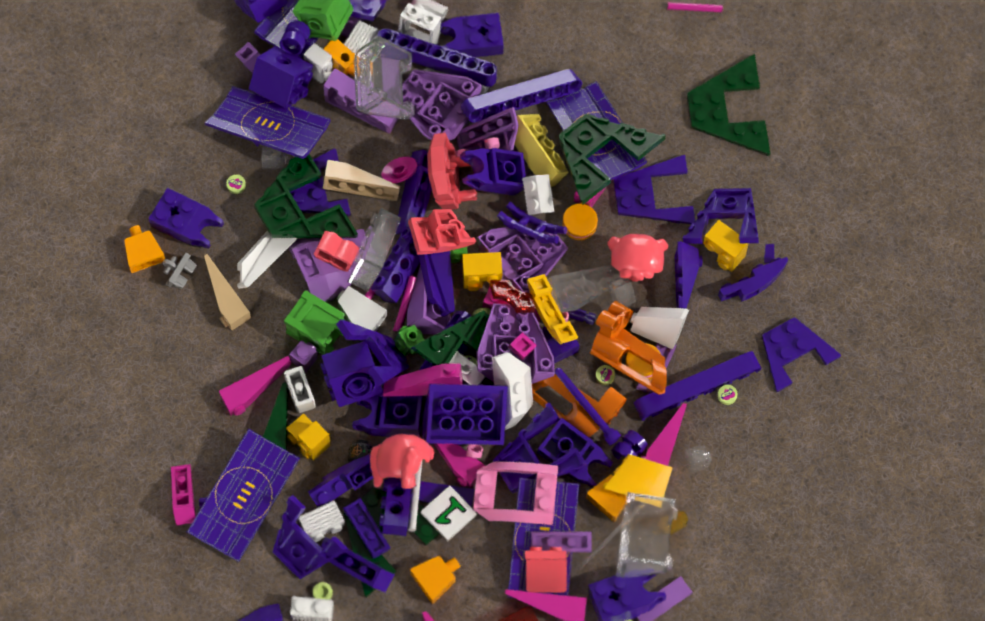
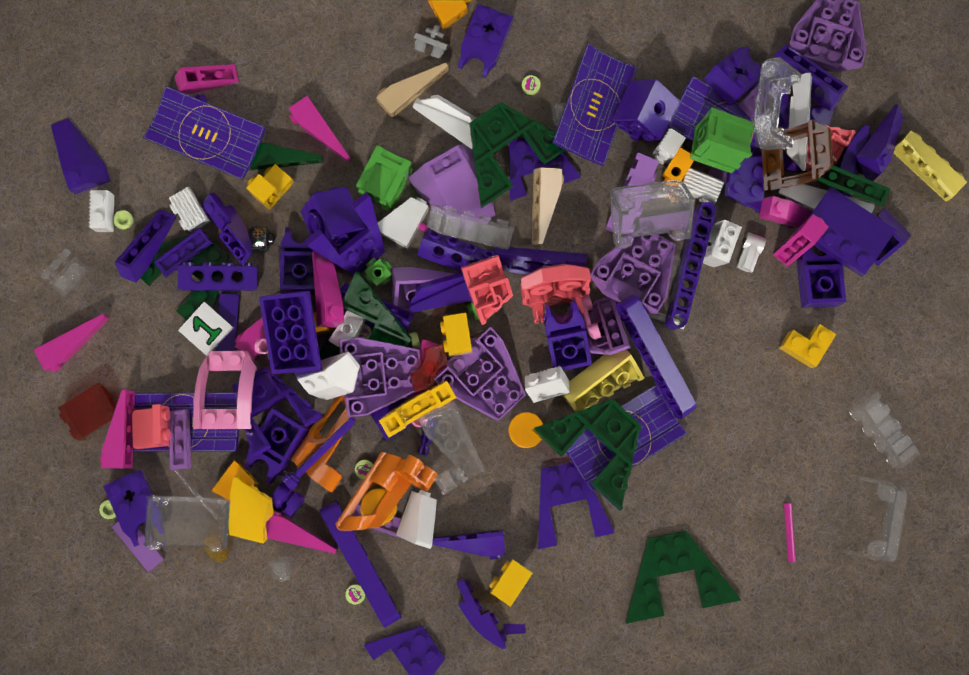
camera: 85 degrees right, 15 degrees up
(248, 56) = (669, 77): medium lavender brick -> none
(294, 38) = (687, 116): dark purple wheel -> none
(297, 548) = (157, 190): dark purple wing -> none
(299, 389) = (316, 172): white brick -> none
(304, 355) = (351, 171): medium lavender brick -> none
(336, 251) = (459, 188): coral brick -> none
(399, 169) = (562, 242): dark pink dish -> none
(399, 458) = (239, 273): coral piece -> none
(405, 303) = (418, 264): dark pink bar -> none
(414, 502) = (221, 294): white bar -> none
(435, 576) = (143, 322): light orange torso -> none
(468, 34) = (722, 294): dark purple brick -> none
(522, 346) = (372, 382): dark pink plate -> none
(524, 219) = (502, 386): dark purple piece -> none
(637, 255) = (484, 491): coral piece -> none
(726, 204) = (559, 582): dark purple wing -> none

